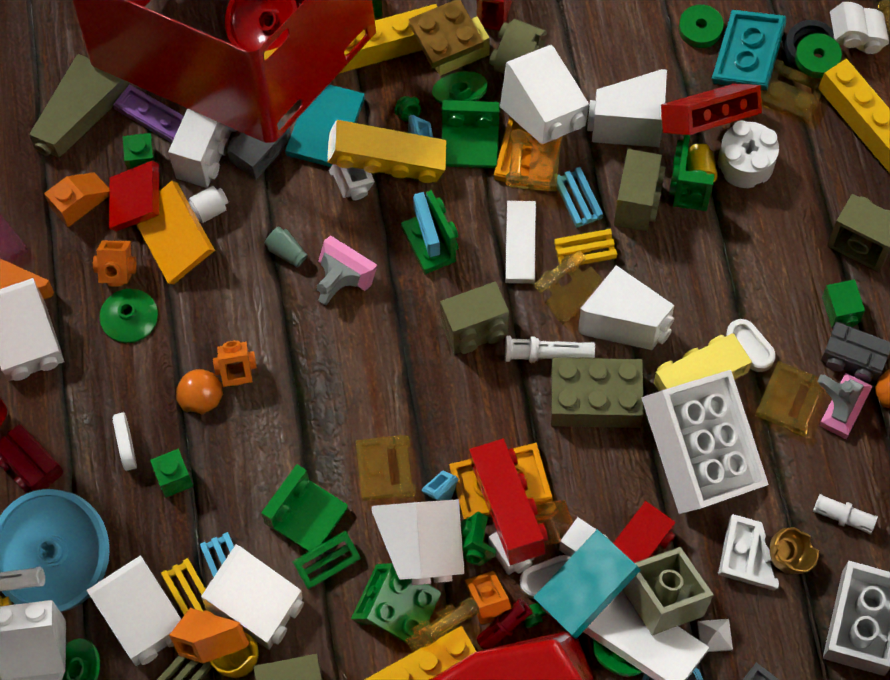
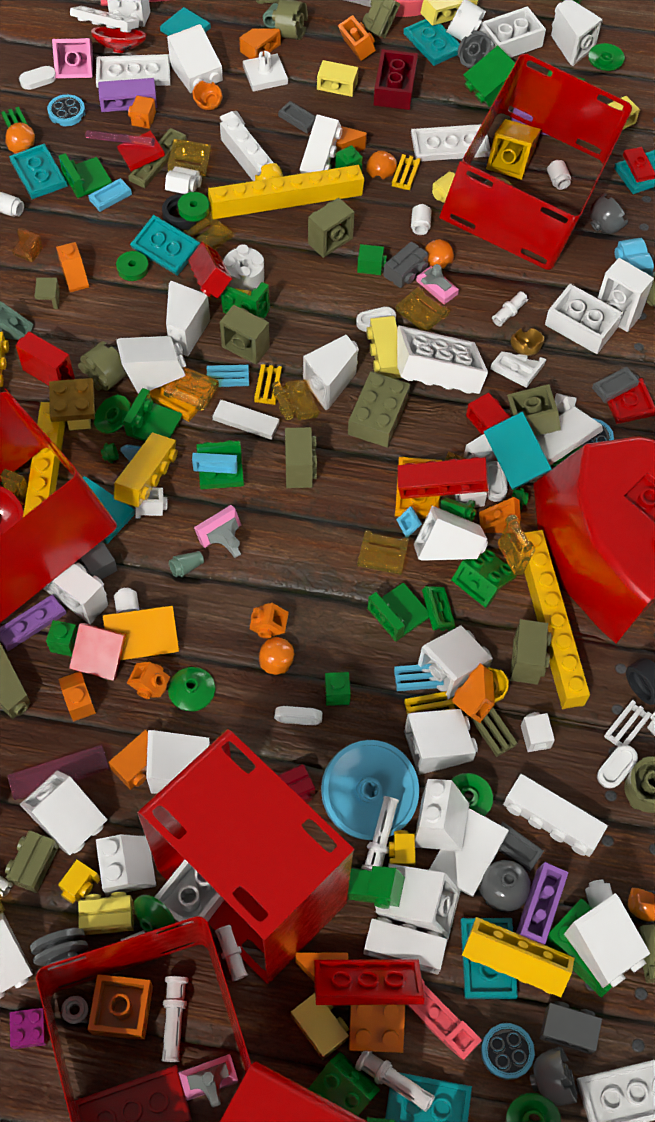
camera: 75 degrees left, 5 degrees down
(504, 624) = (526, 520): dark red axle -> none
(533, 349) = (332, 435): white pin -> none

